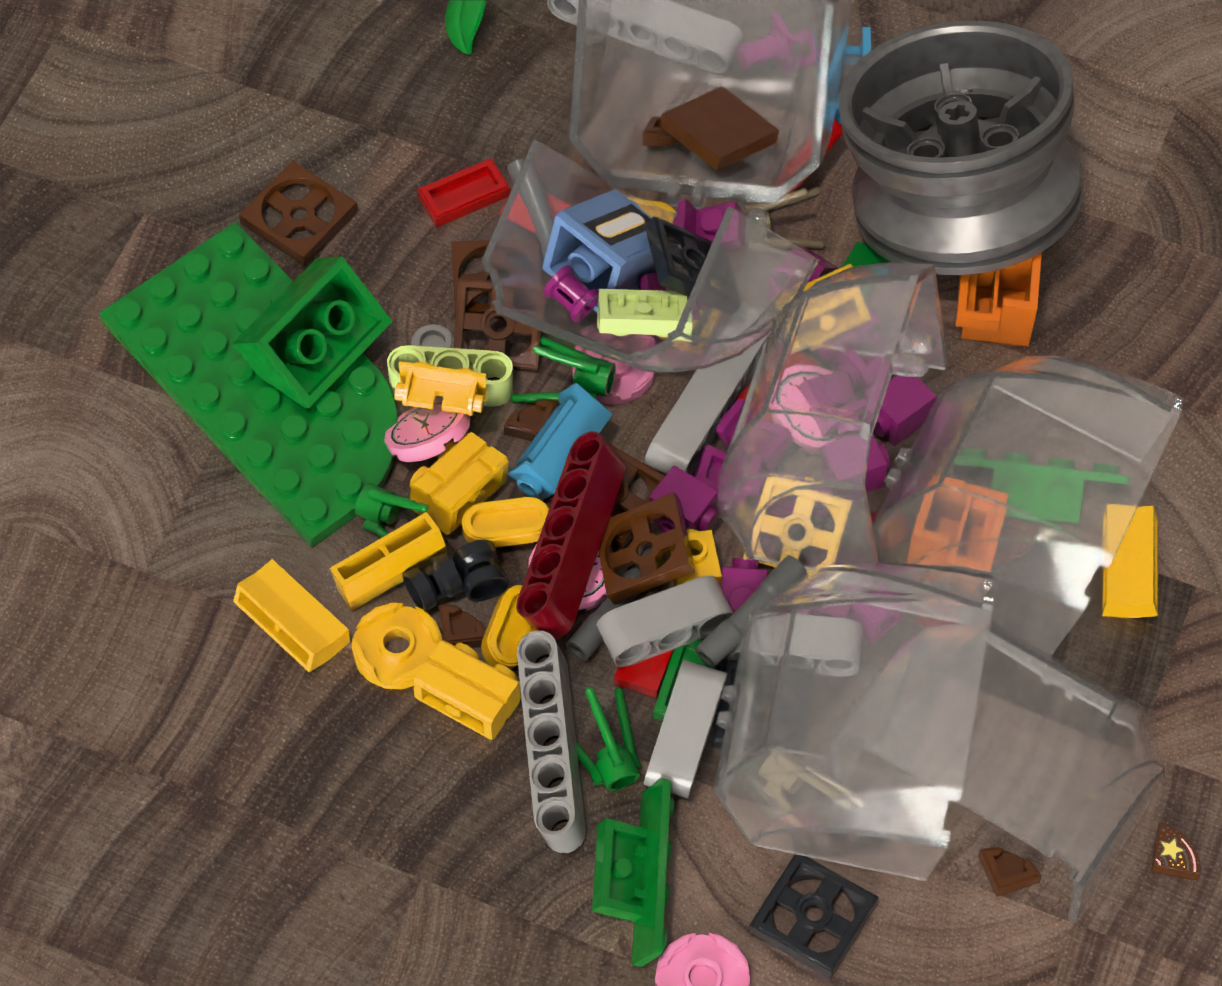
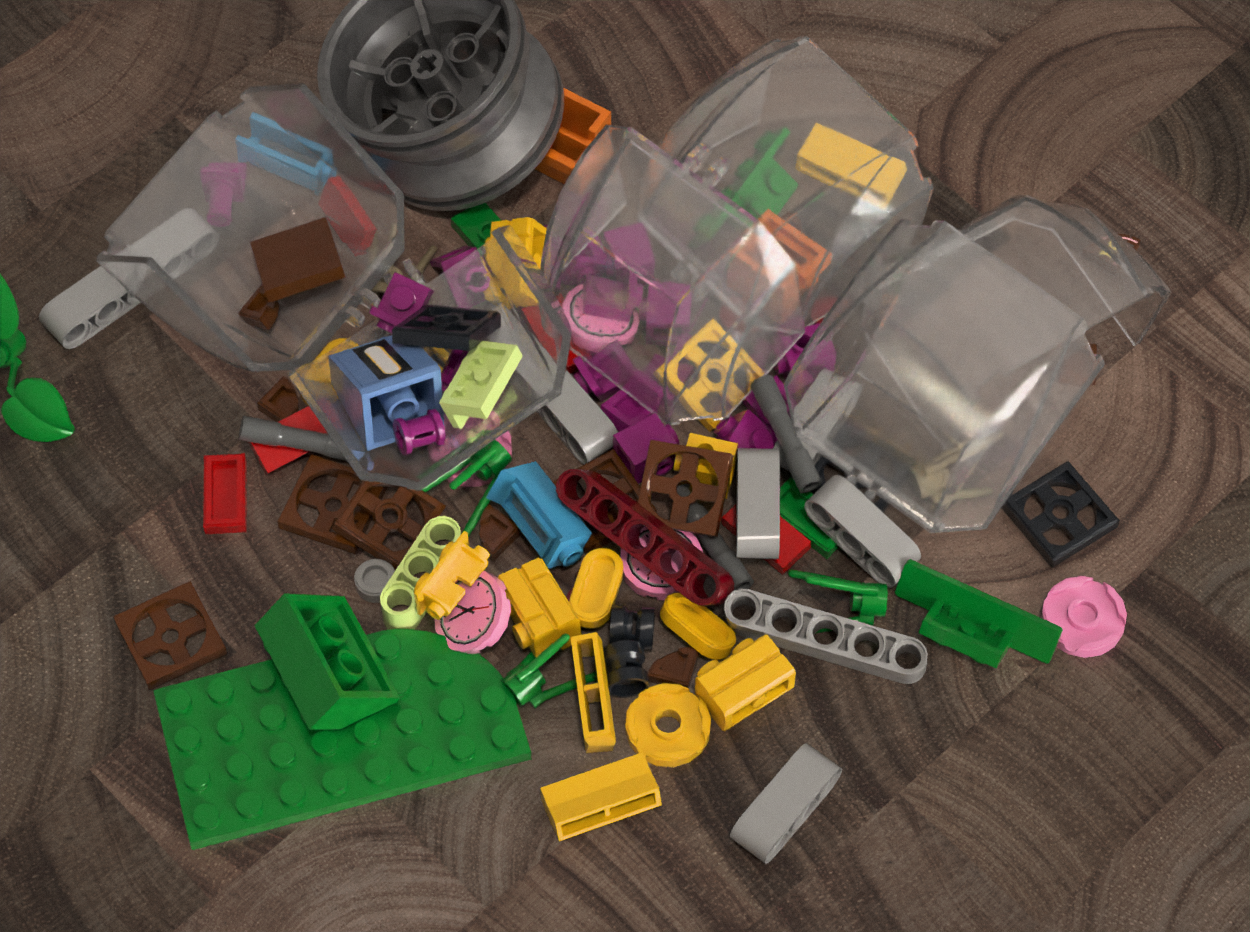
camera: 65 degrees left, 0 degrees up
(355, 775) = (785, 803): none -> light grey beam

